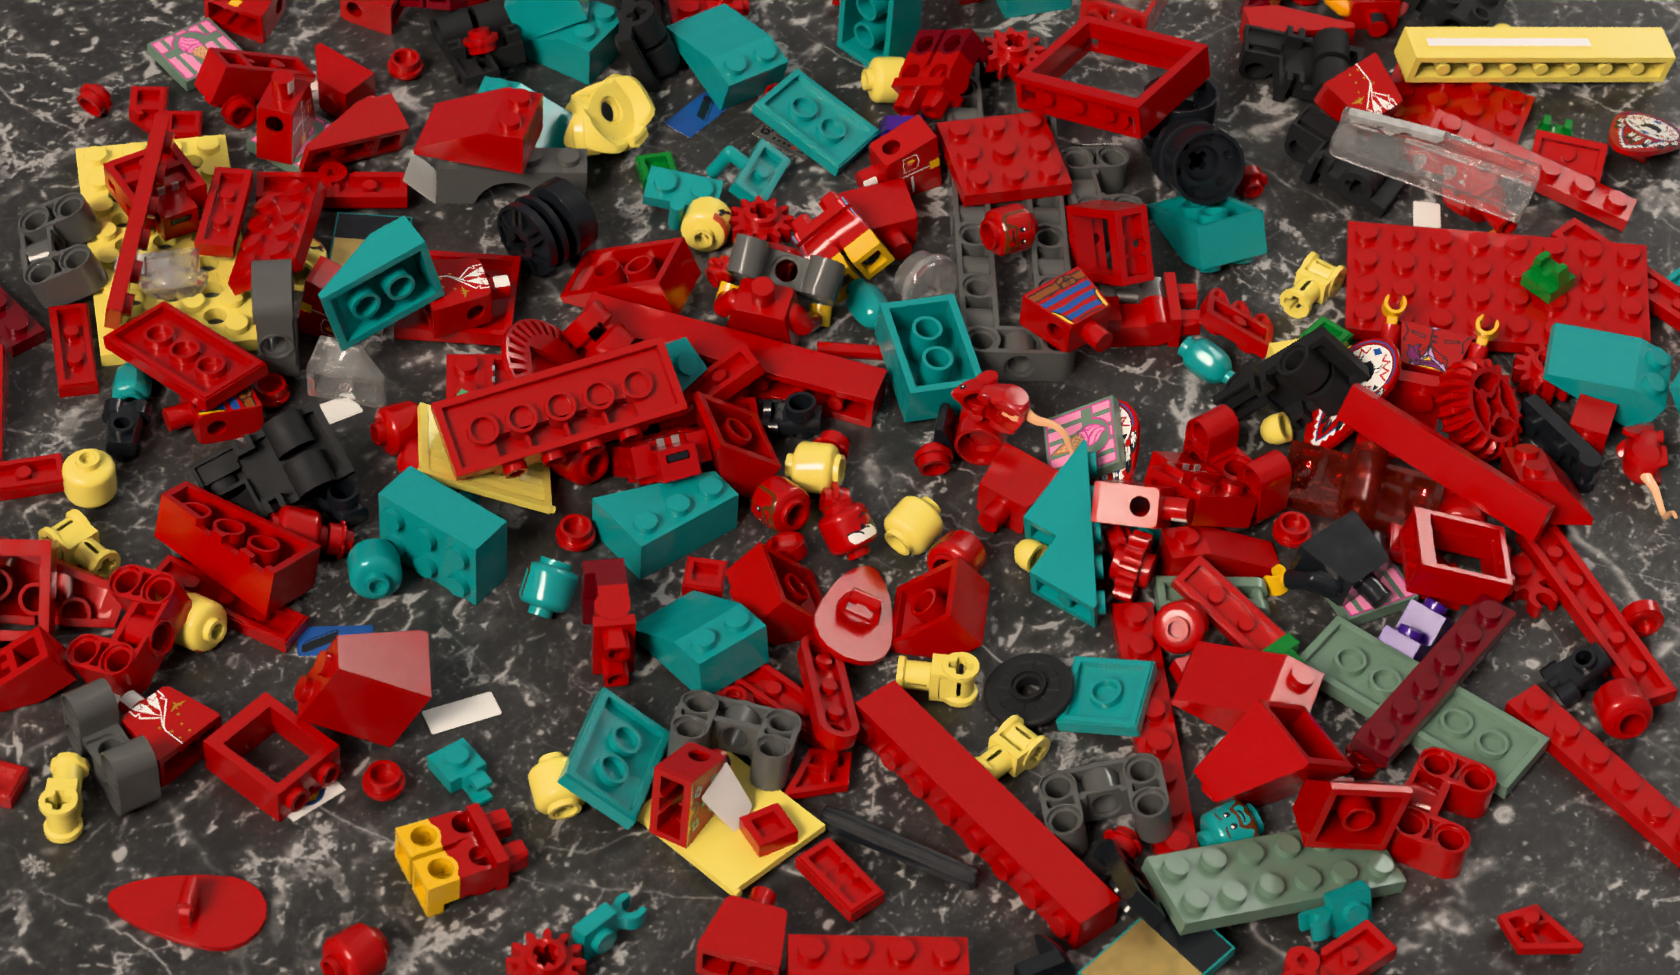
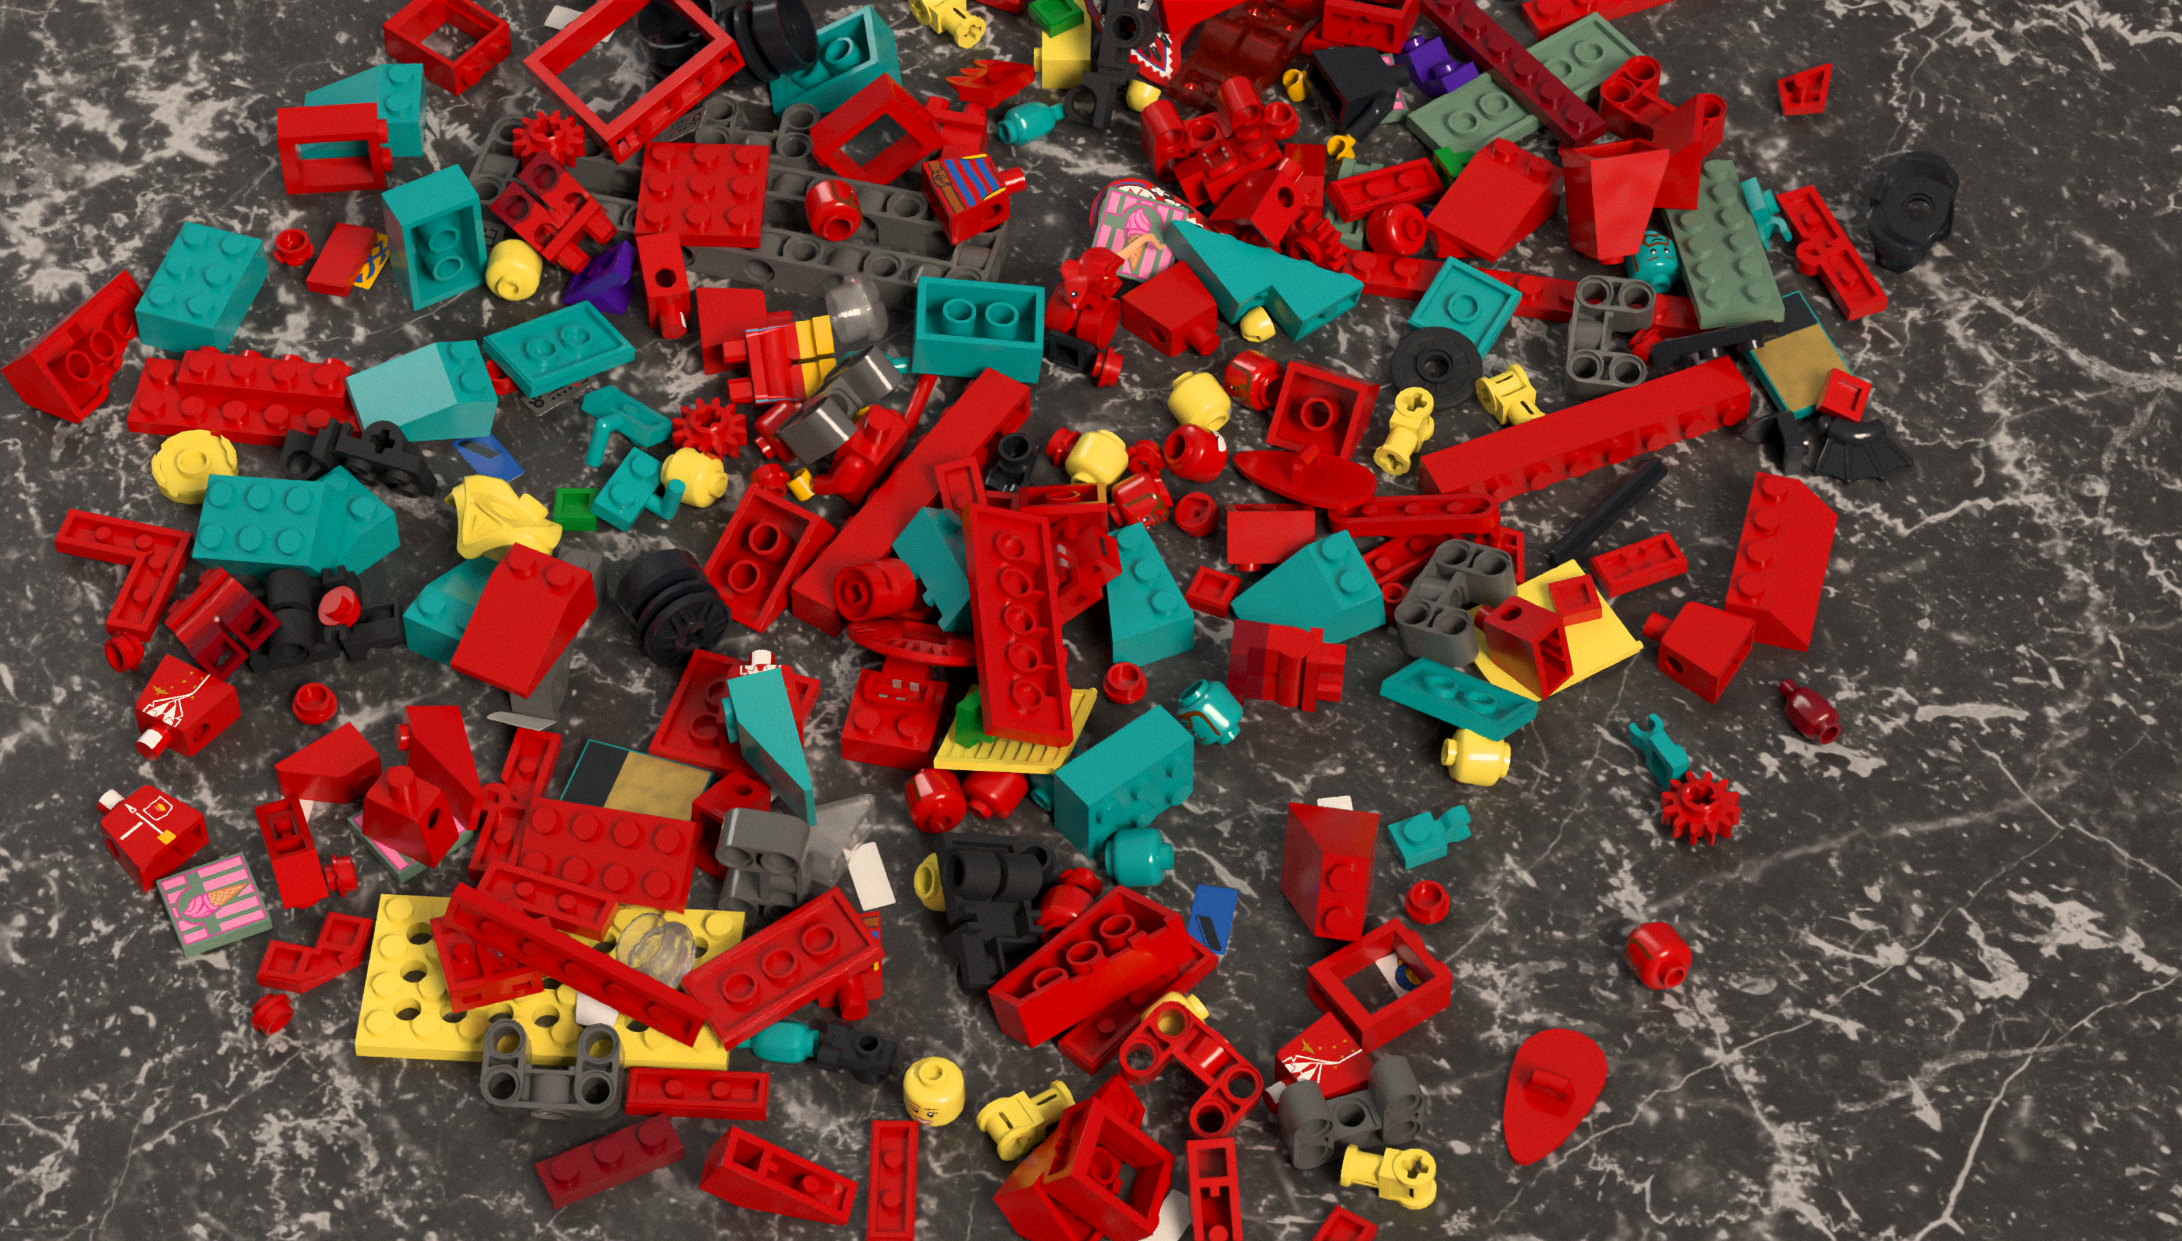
camera: 70 degrees left, 5 degrees up
(458, 855) = (1548, 855): hips -> none

